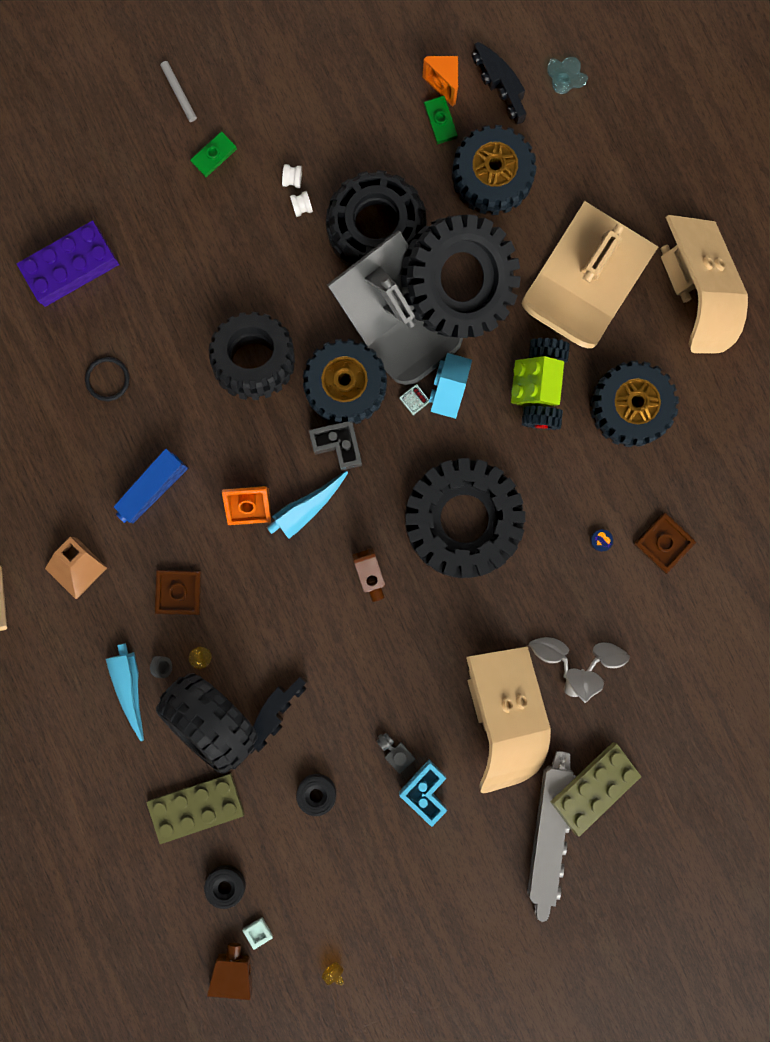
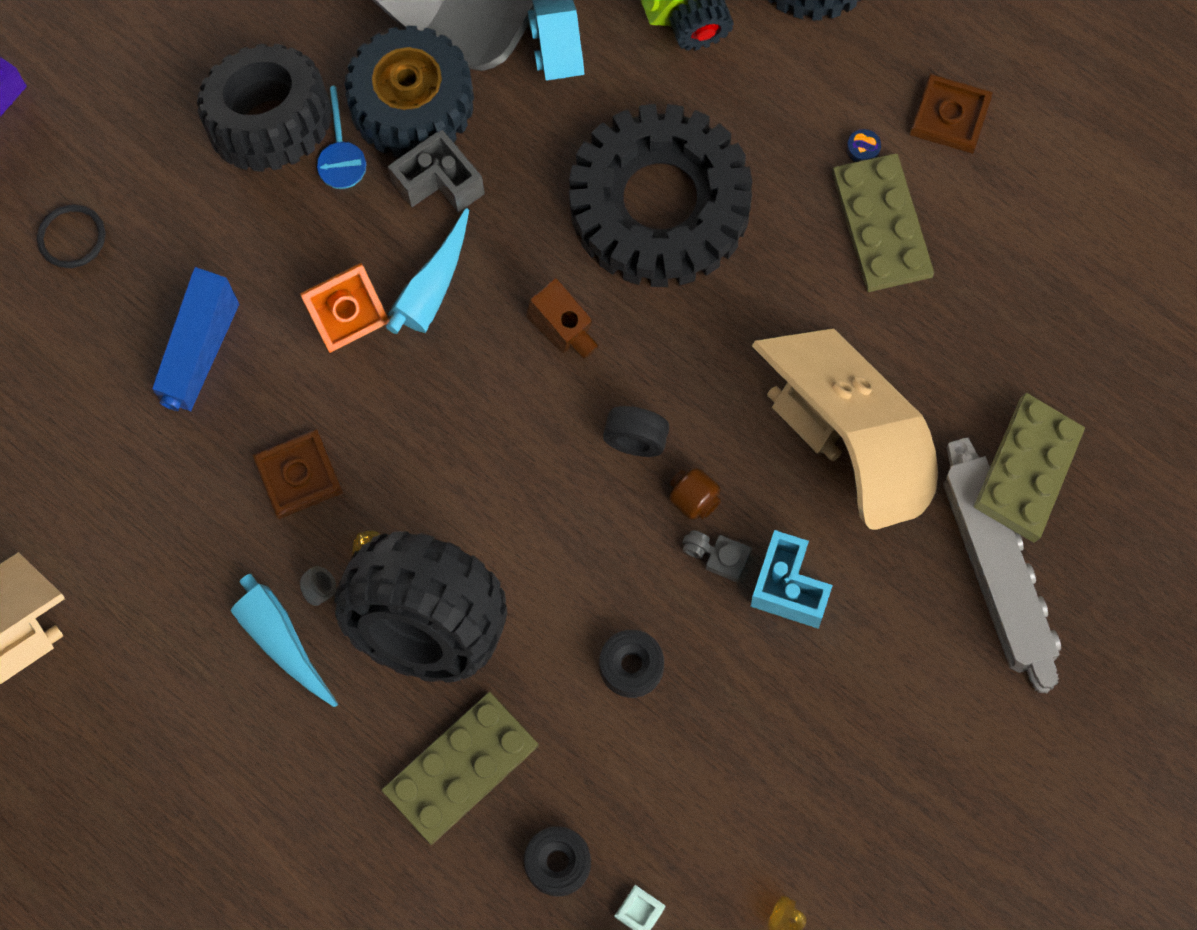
camera: 20 degrees left, 15 degrees down
(75, 567) = (129, 499): medium nougat slope -> none
(268, 719) = (511, 558): black slope -> none
(286, 404) = (340, 163): none -> blue piece
(380, 662) = (636, 431): none -> black tyre
(398, 712) = (694, 493): none -> reddish brown head
(414, 399) = (517, 80): tile -> none
(580, 682) = (938, 306): light grey plant -> none
(588, 593) = (882, 222): none -> olive plate

